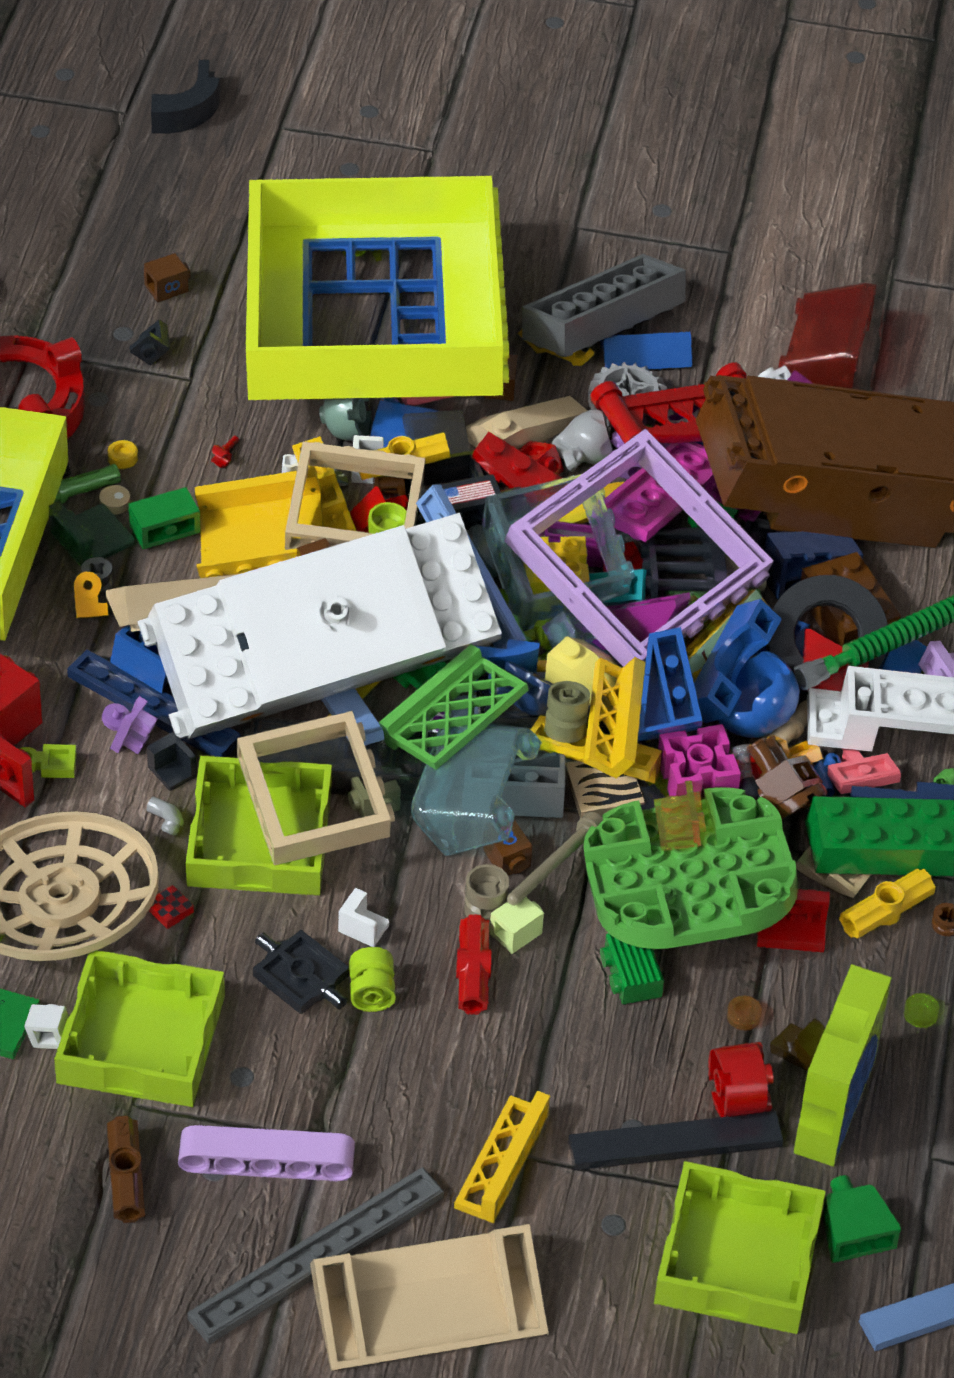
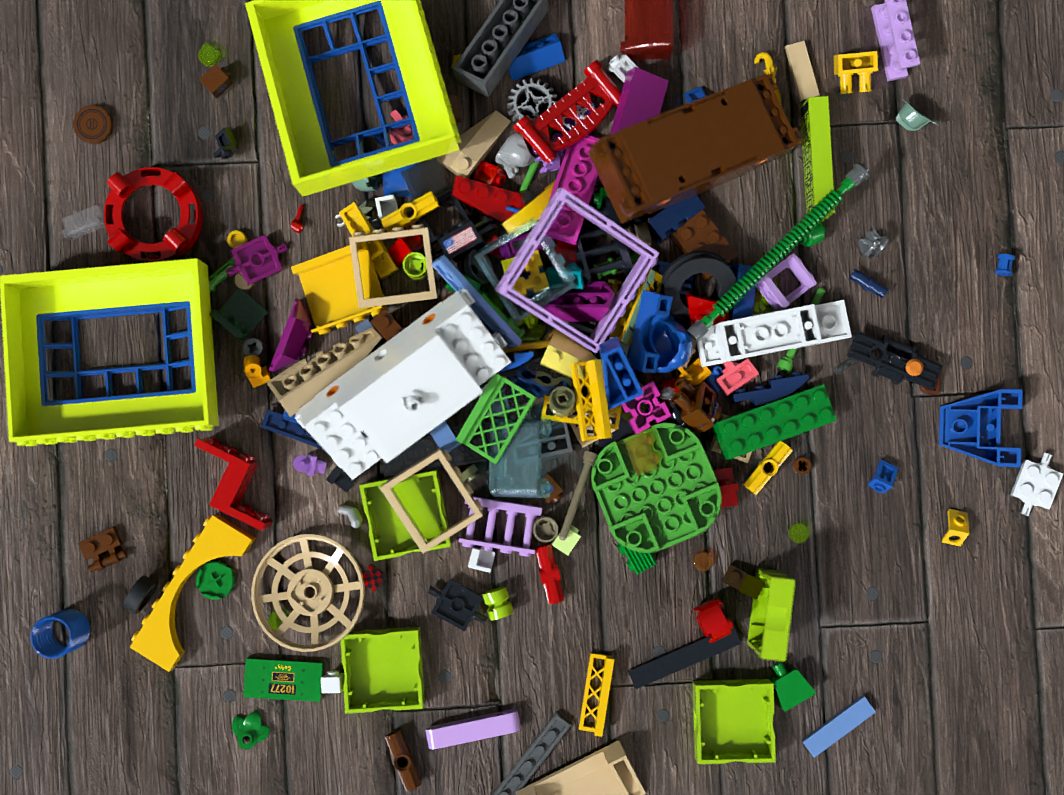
camera: 10 degrees left, 40 degrees up
(54, 760) = (275, 495): lime plate -> none
(142, 471) = (256, 260): none -> magenta plate
(156, 518) = (279, 293): green brick -> none
(166, 248) = (208, 55): none -> clear neon green tile
(170, 560) = (294, 338): none -> magenta wedge
(420, 853) = (512, 510): none -> lavender fence
(566, 625) = (542, 328): clear light blue brick -> none

